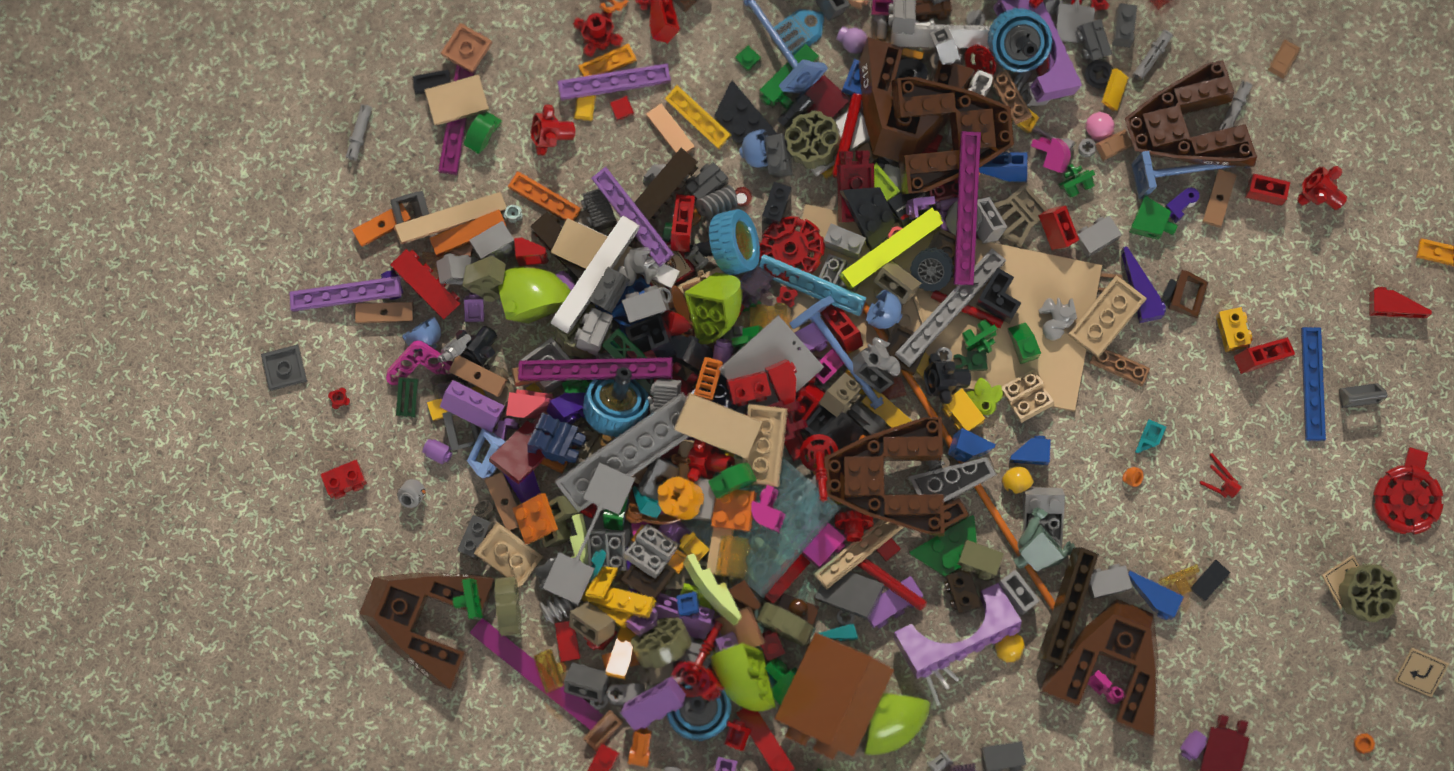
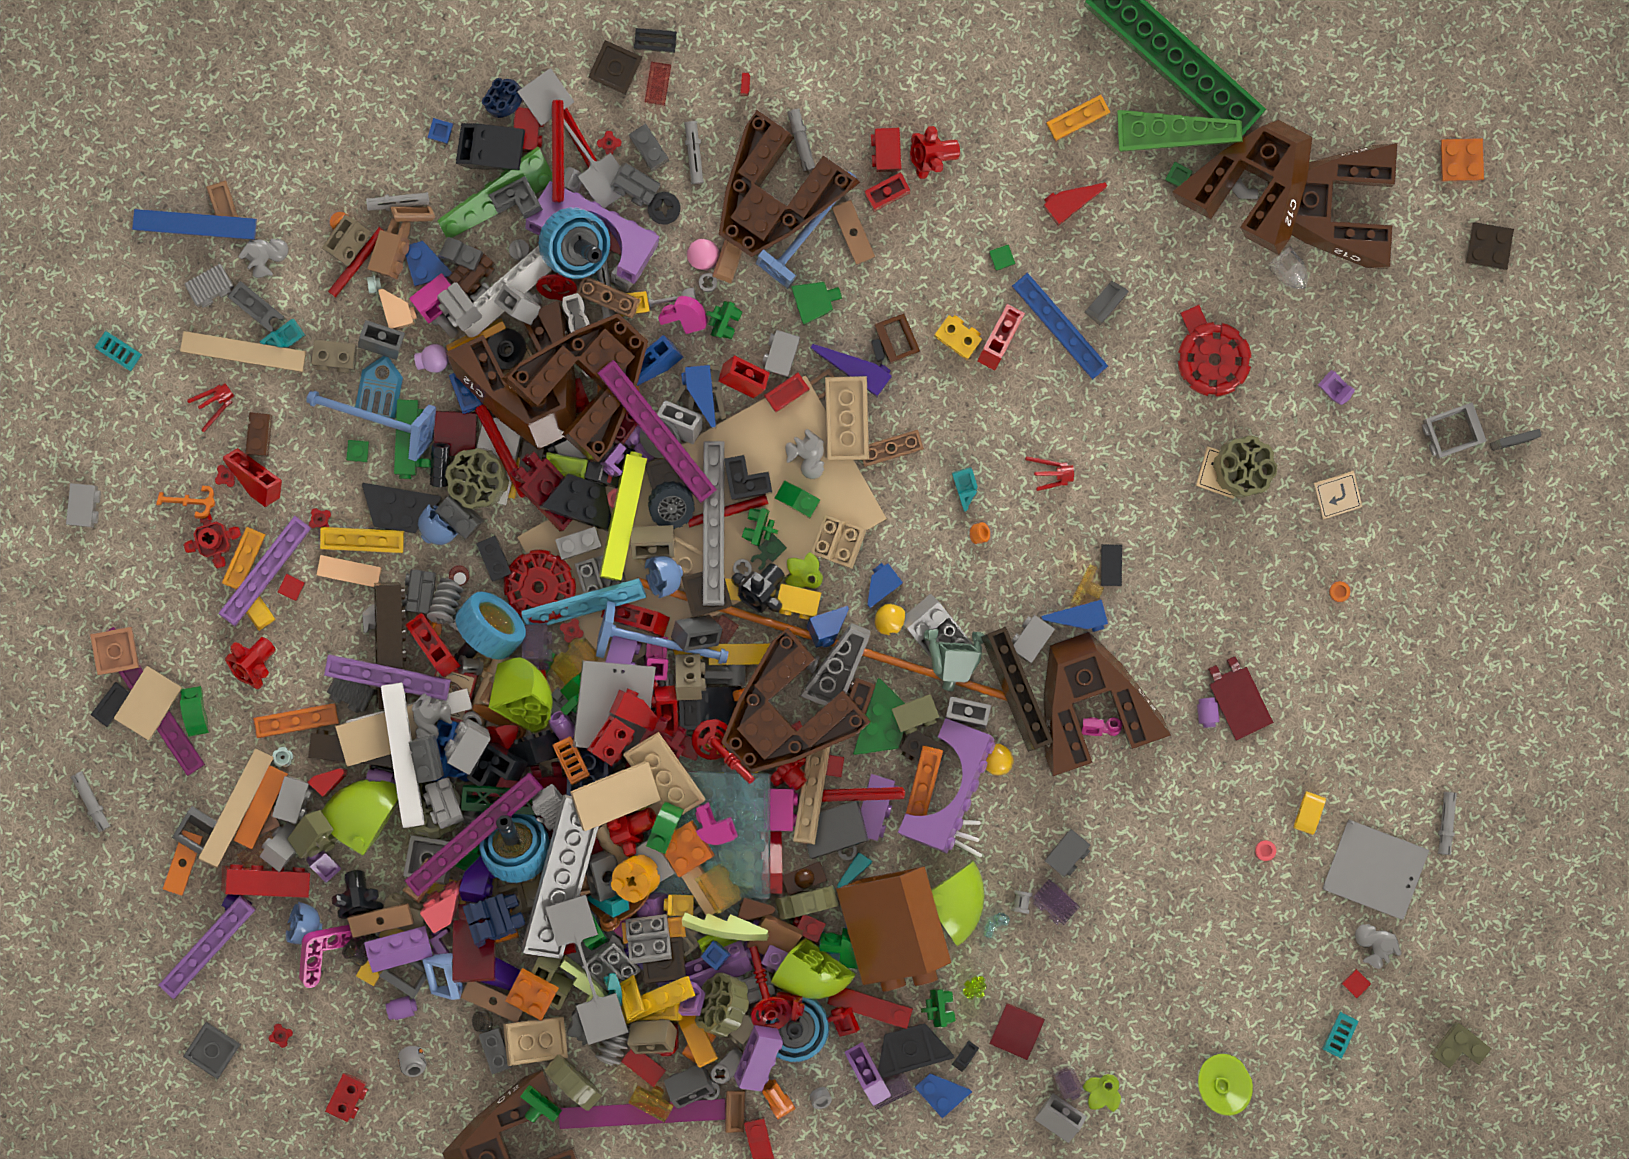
camera: 45 degrees left, 10 degrees up
(373, 312) = (243, 942): medium nougat tile -> none
(405, 413) = (346, 999): dark green tile -> none
(453, 348) = (340, 916): light grey helmet -> none
(667, 231) = (425, 662): dark green tile -> none
(676, 458) = (604, 847): reddish brown piece -> none
(682, 74) = (325, 515): none -> red plate
(880, 358) = (695, 621): light grey animal -> none
(906, 760) = (995, 921): none -> clear light blue arm
(945, 613) = (924, 781): none -> orange tile
(1022, 207) = (700, 387): none -> blue slope
(1079, 265) = (786, 392): none -> red tile
(1114, 89) = (688, 211): yellow tile -> none
(1184, 200) = (827, 255): dark purple leg -> none
(1228, 39) = (745, 84): none -> red tile
(1284, 59) = (805, 58): medium nougat tile -> none
(1292, 162) = (886, 149): none -> red brick
(1311, 303) = (1002, 257): none -> green tile

